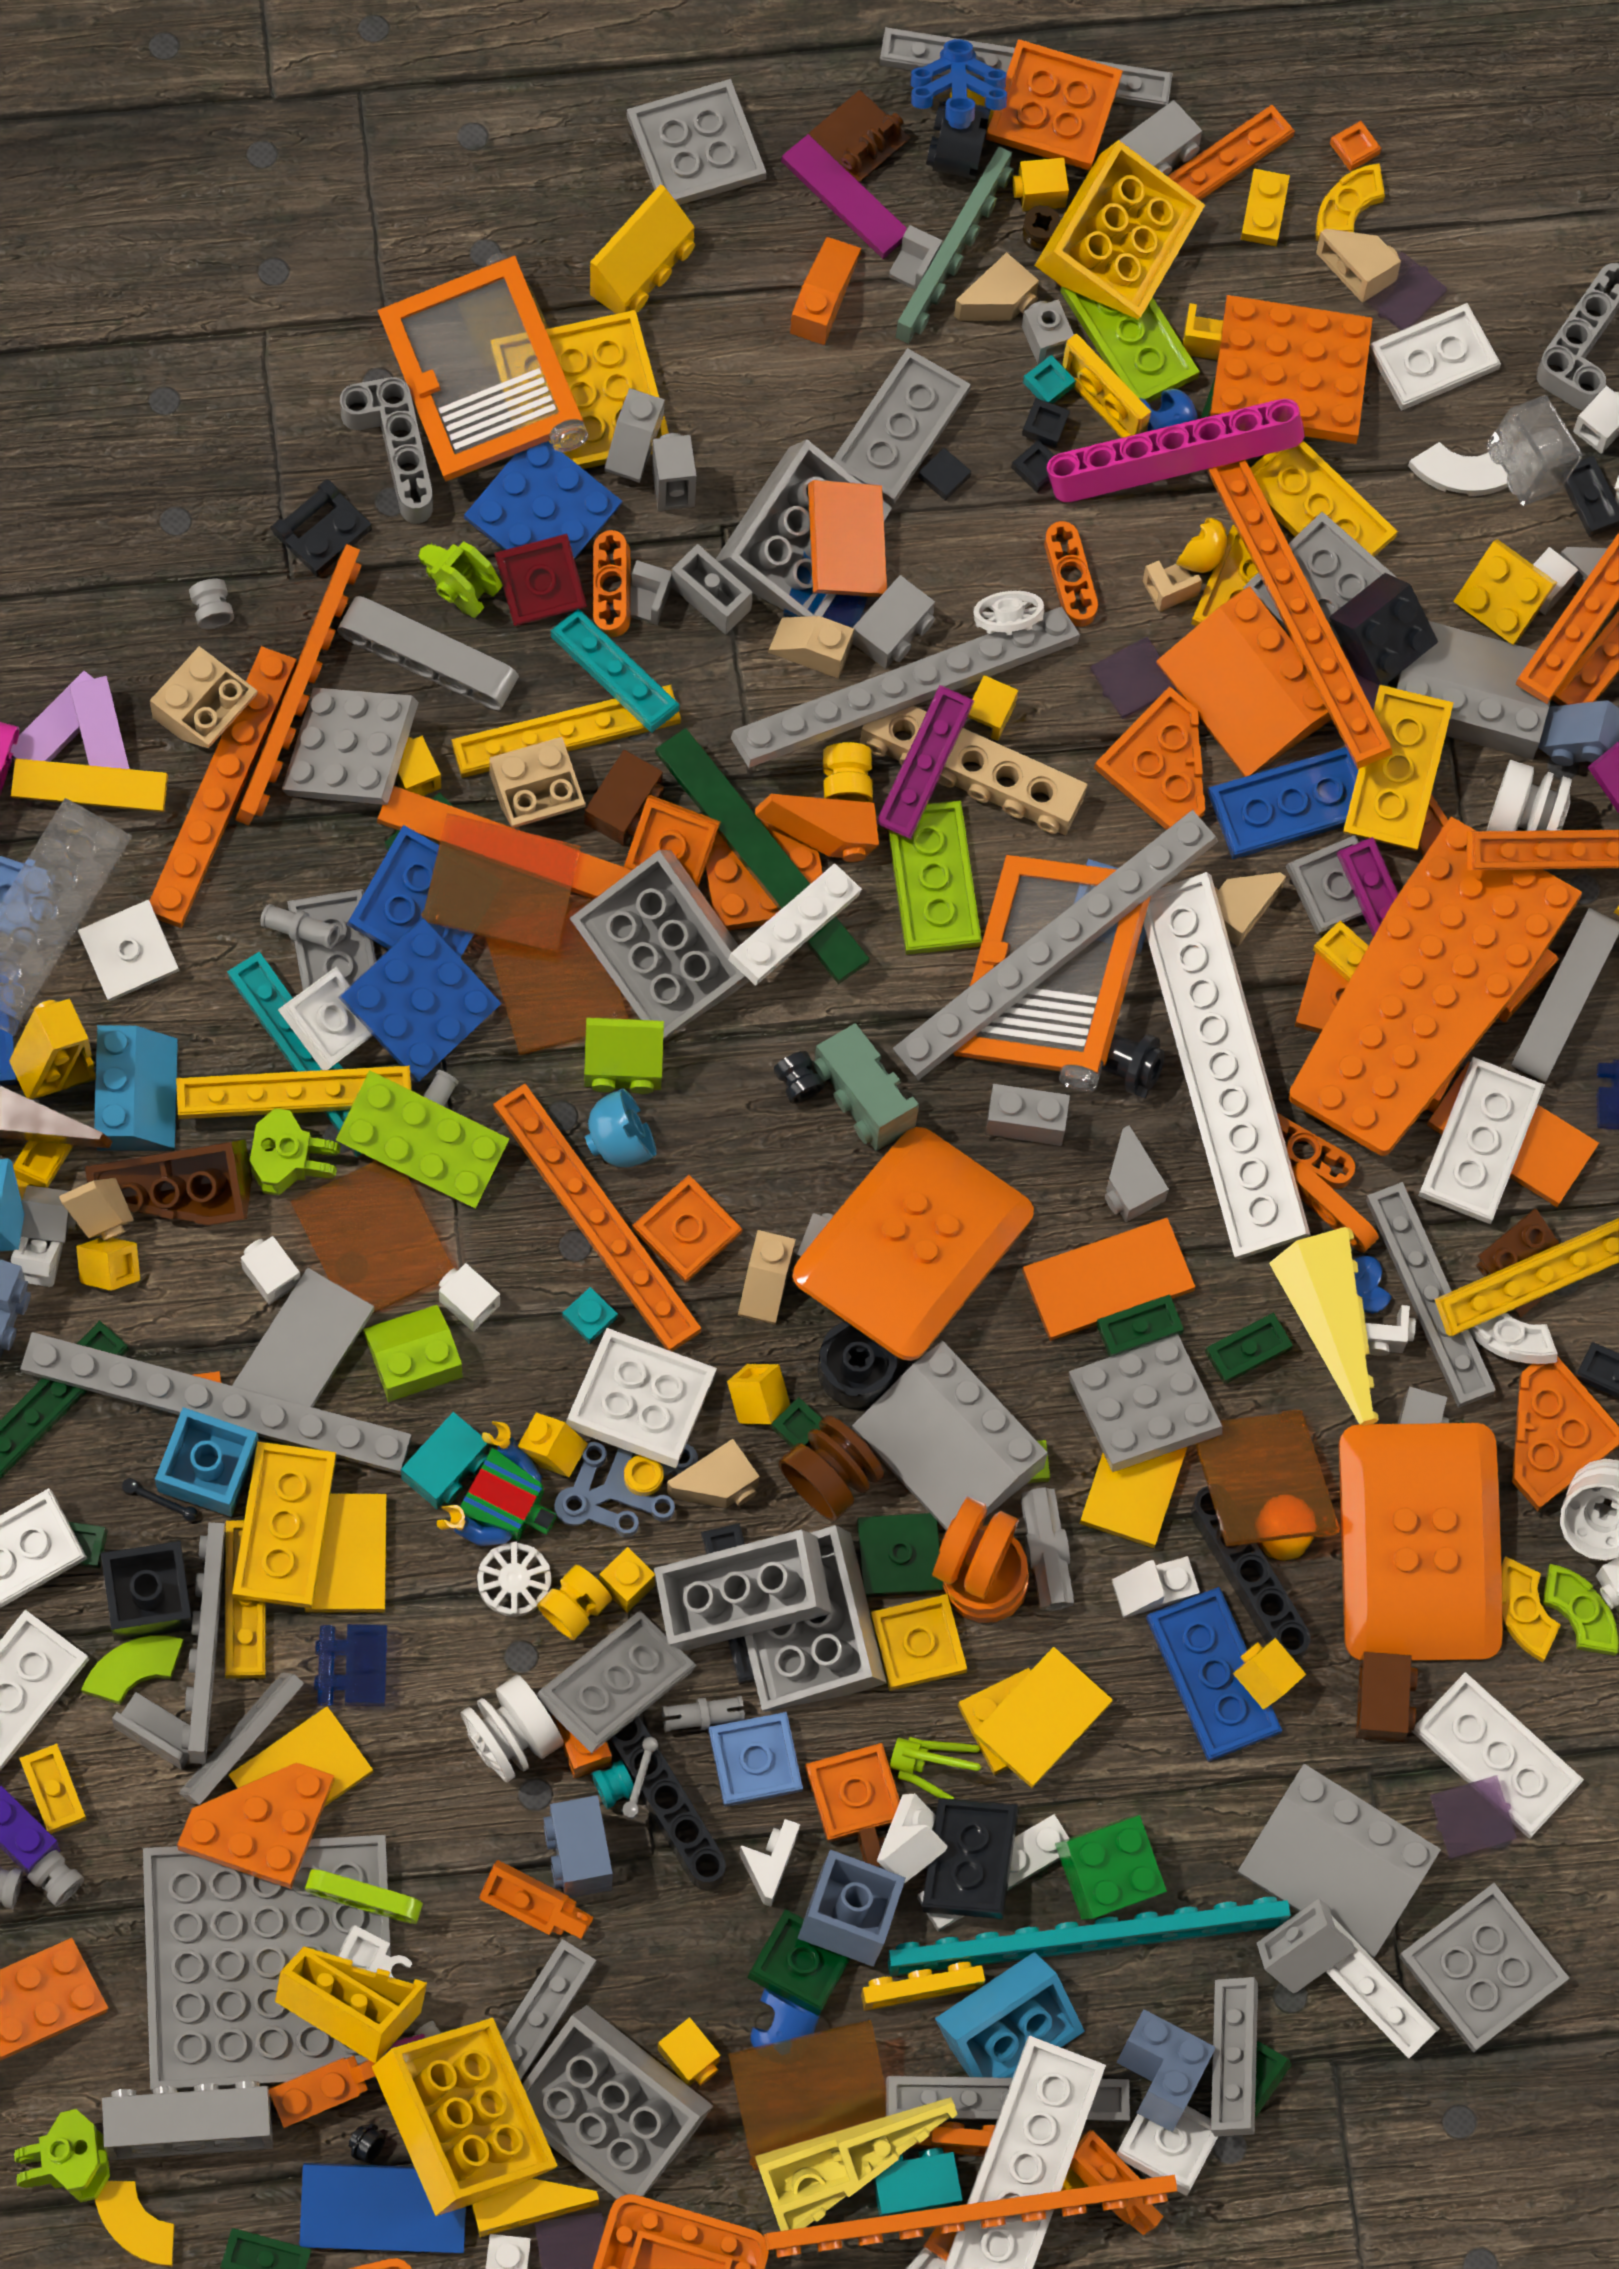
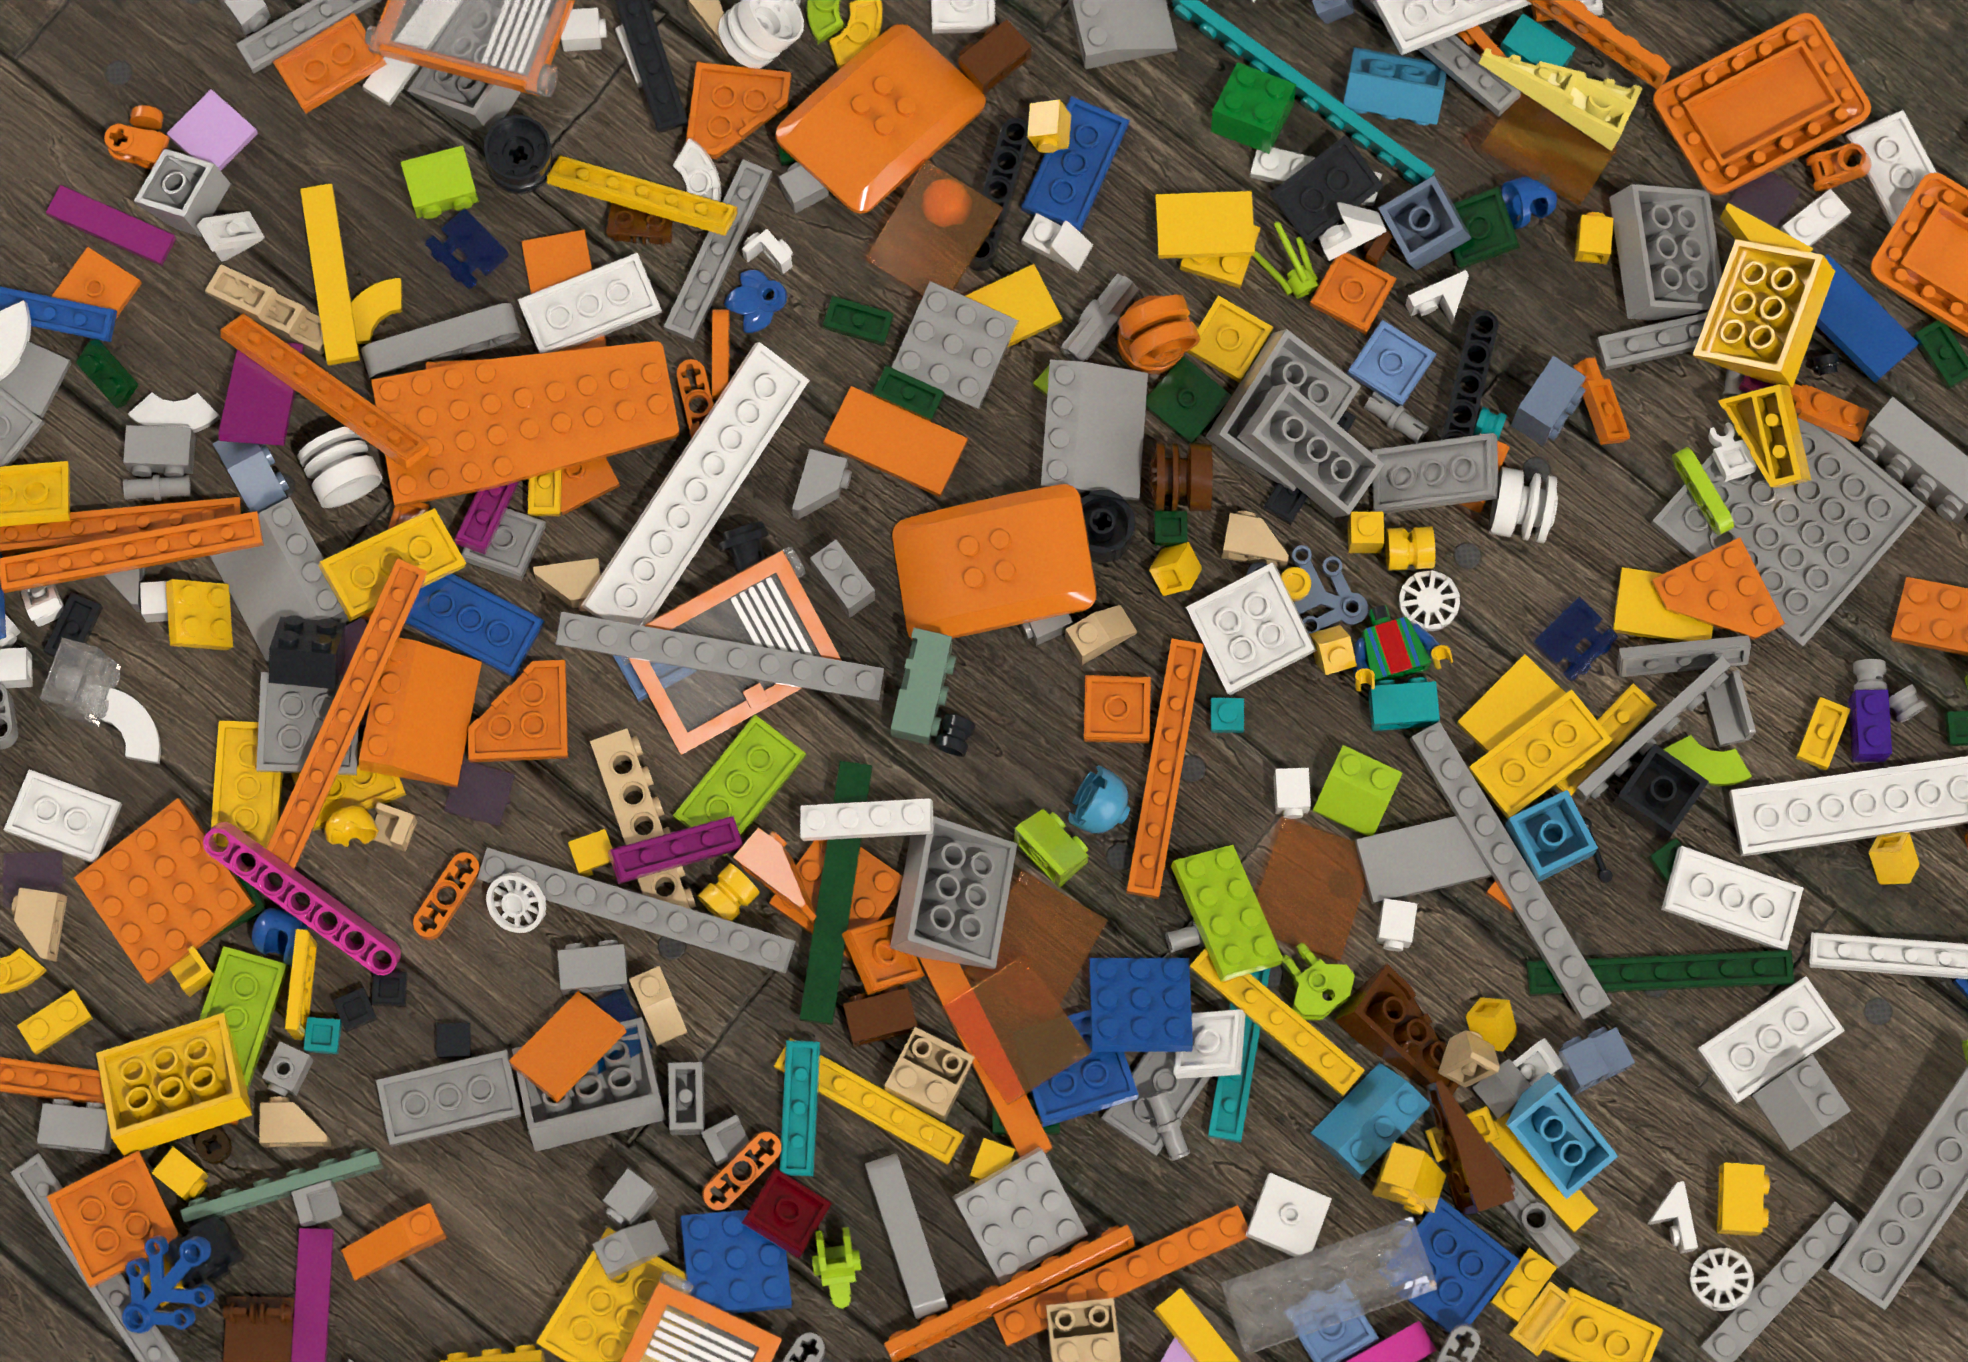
camera: 130 degrees left, 5 degrees up
(631, 1808) = (1498, 395): light grey hinge -> none
(922, 1985) = (1446, 164): yellow plate -> none
(1322, 1289) = (785, 301): light yellow wedge -> none

